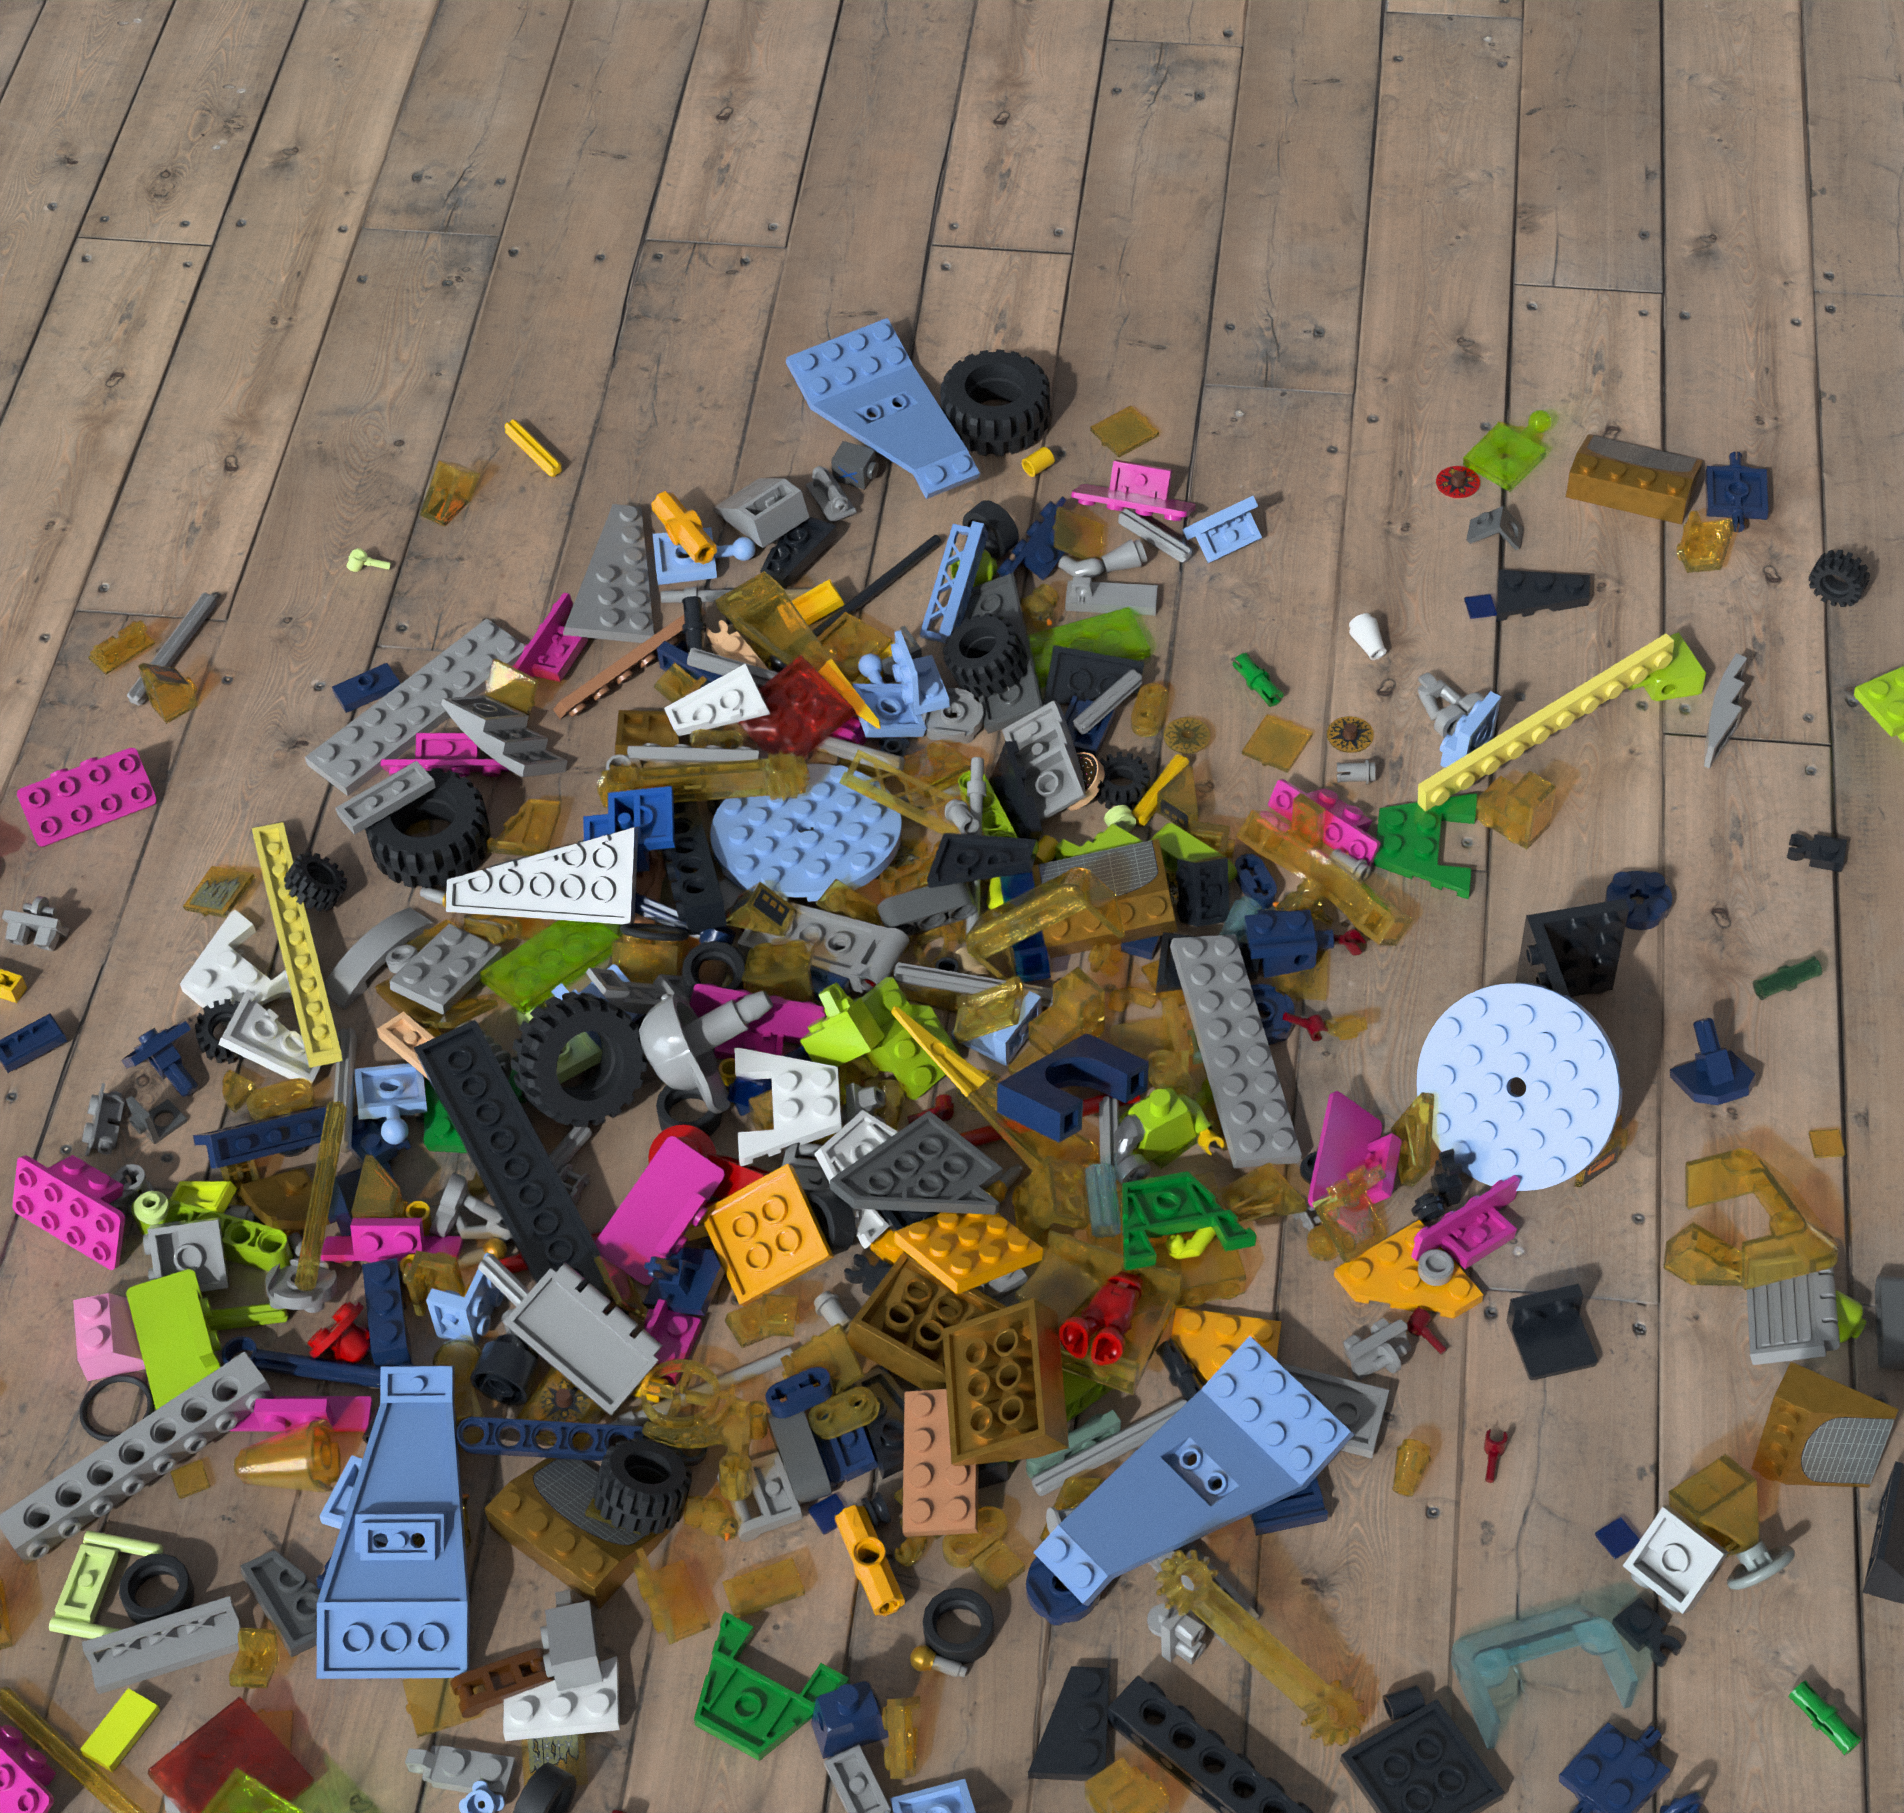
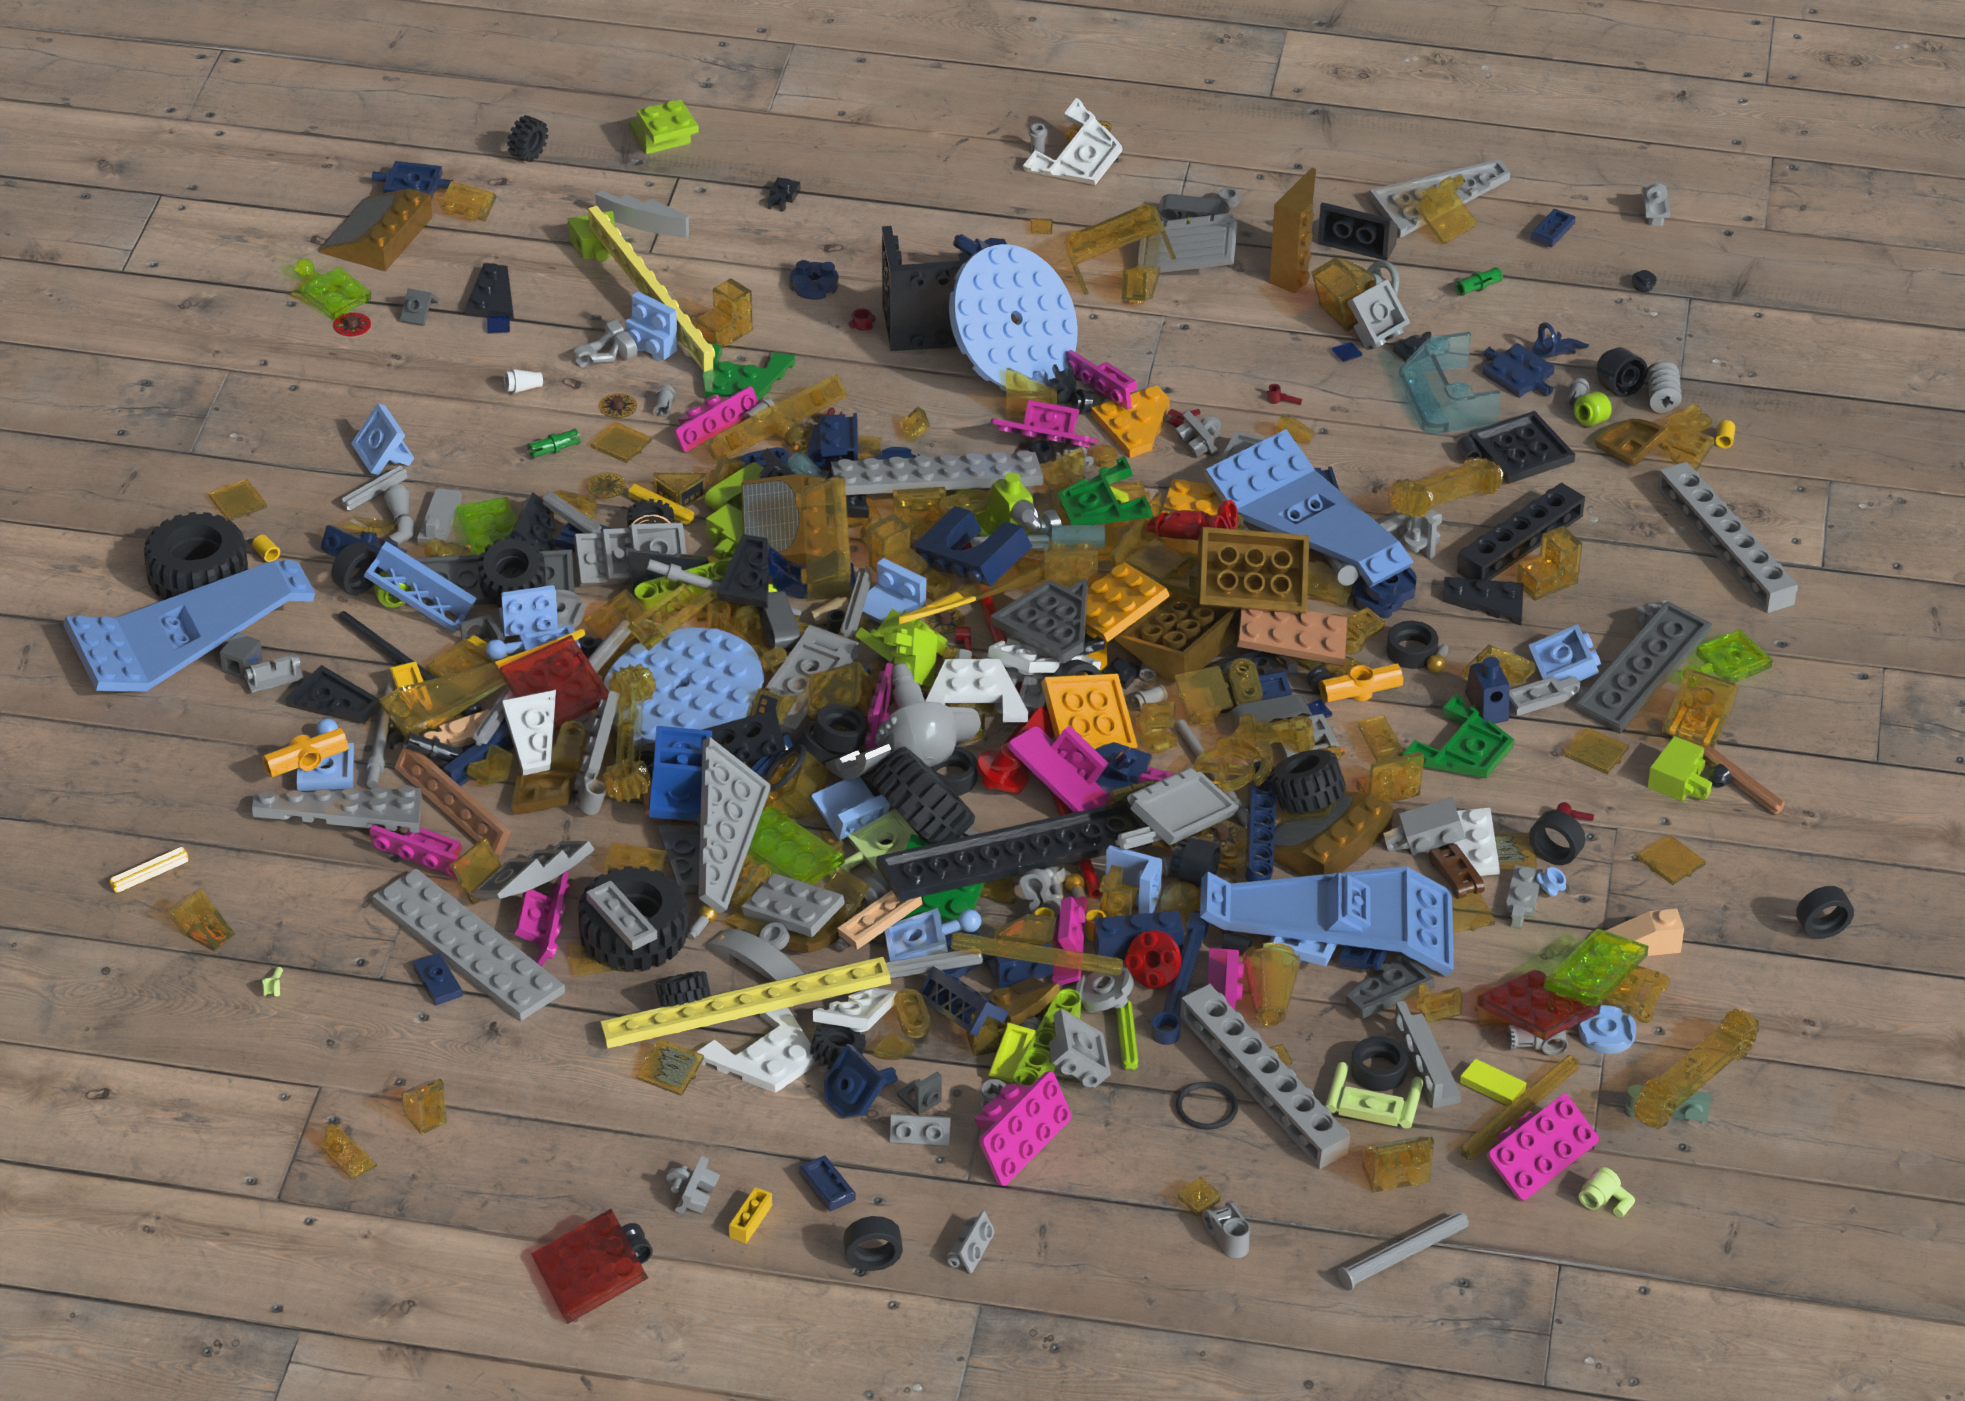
camera: 90 degrees left, 10 degrees down
(86, 796) = (538, 1159): dark pink bracket -> none
(106, 1337) = (1145, 1108): bright pink slope -> none
(153, 1214) = (1032, 1065): yellowish green plate -> none
(174, 1333) = (1156, 1052): lime bracket -> none
(176, 642) = (355, 1117): light grey axle -> none
(764, 509) = (287, 707): light grey slope -> none
(799, 1392) = (1226, 702): dark blue beam -> none
(958, 813) = (700, 583): light grey pin -> none
(989, 1010) = (897, 588): clear yellow plate -> none
(1121, 817) = (692, 524): yellowish green bush -> none
(1137, 488) = (327, 491): bracket -> none
(1308, 819) = (725, 412): clear yellow plate -> none
(1312, 1024) = (913, 442): dark red hand -> none
(1350, 1213) = (1088, 416): clear yellow bracket -> none
(1435, 1267) = (1140, 397): light grey tile -> none
(1551, 1332) = (1192, 359): black bracket -> none
(1787, 978) = (899, 220): clear green pin -> none

